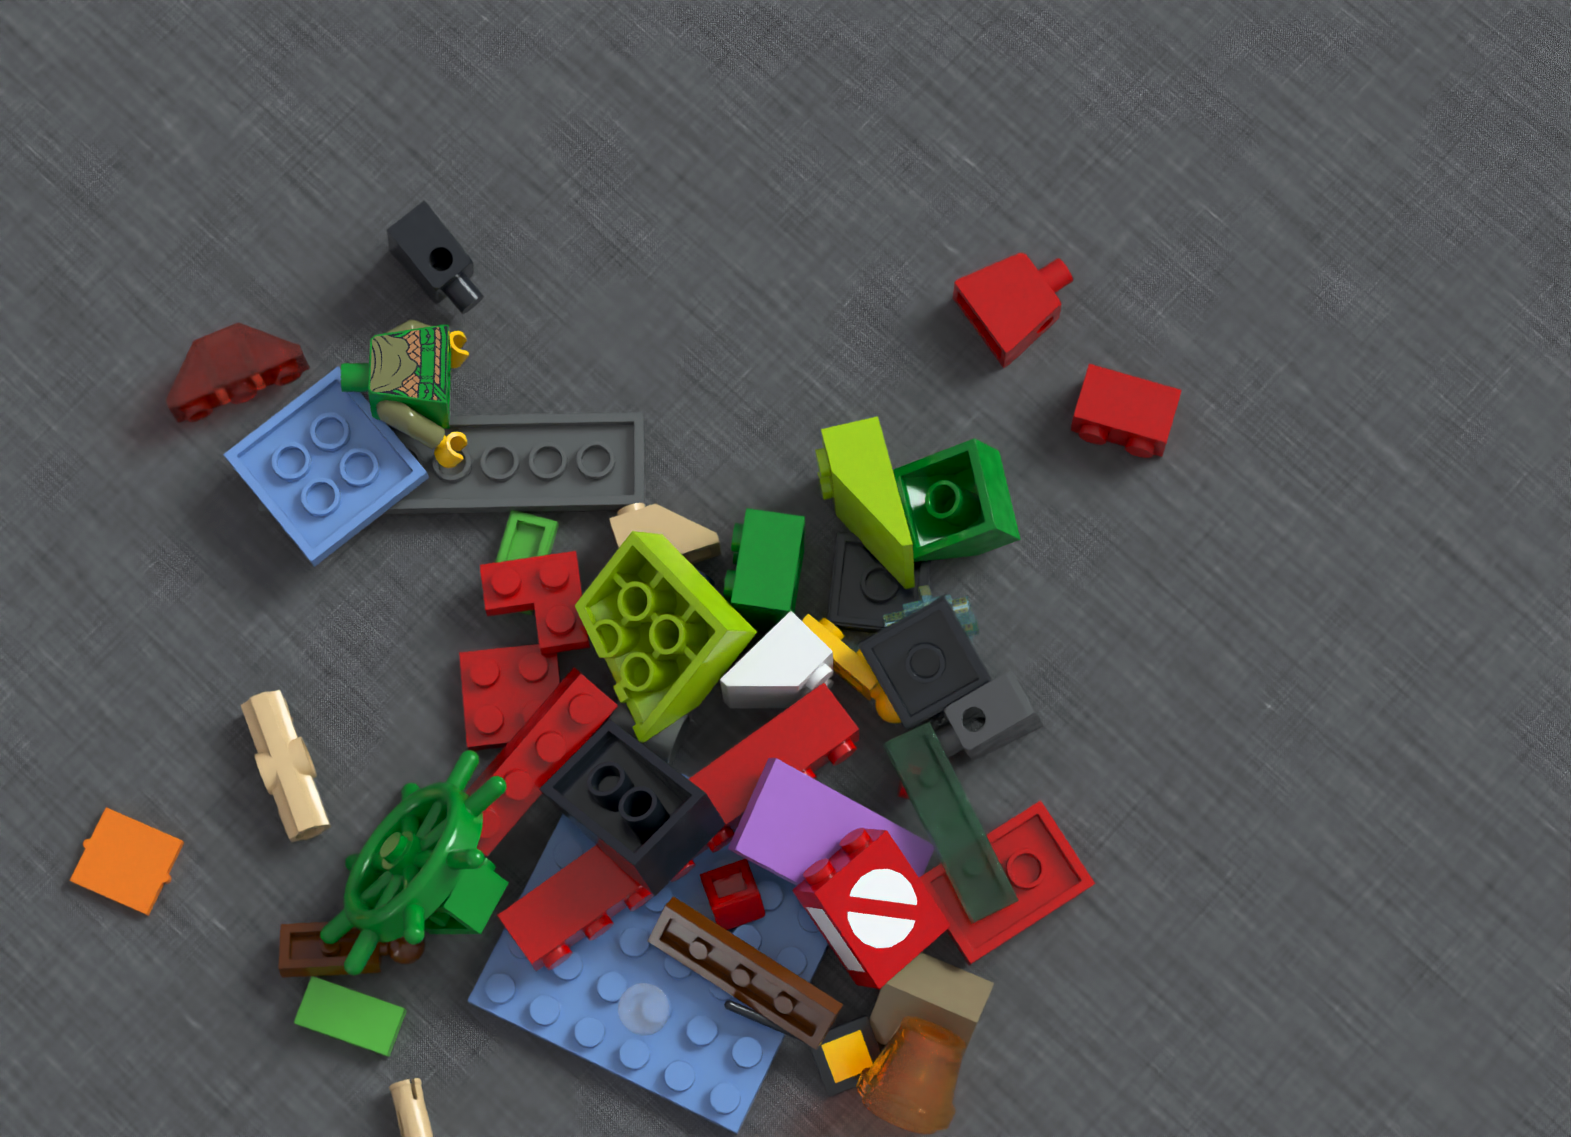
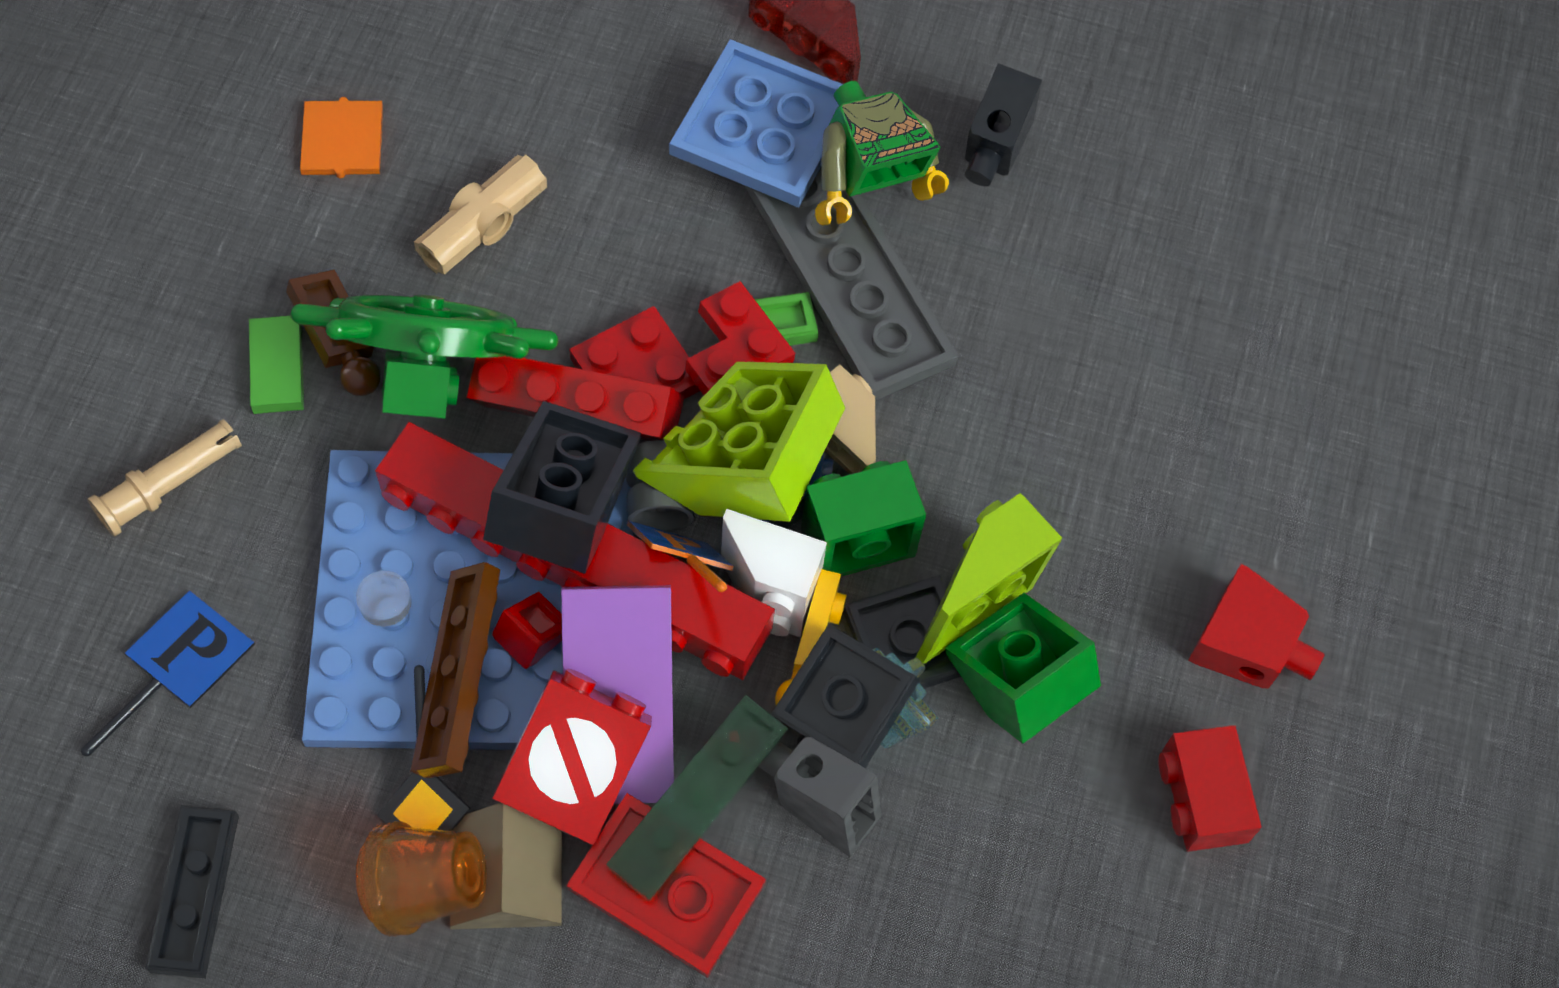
camera: 55 degrees right, 10 degrees down
(723, 731) = (694, 550): none -> piece

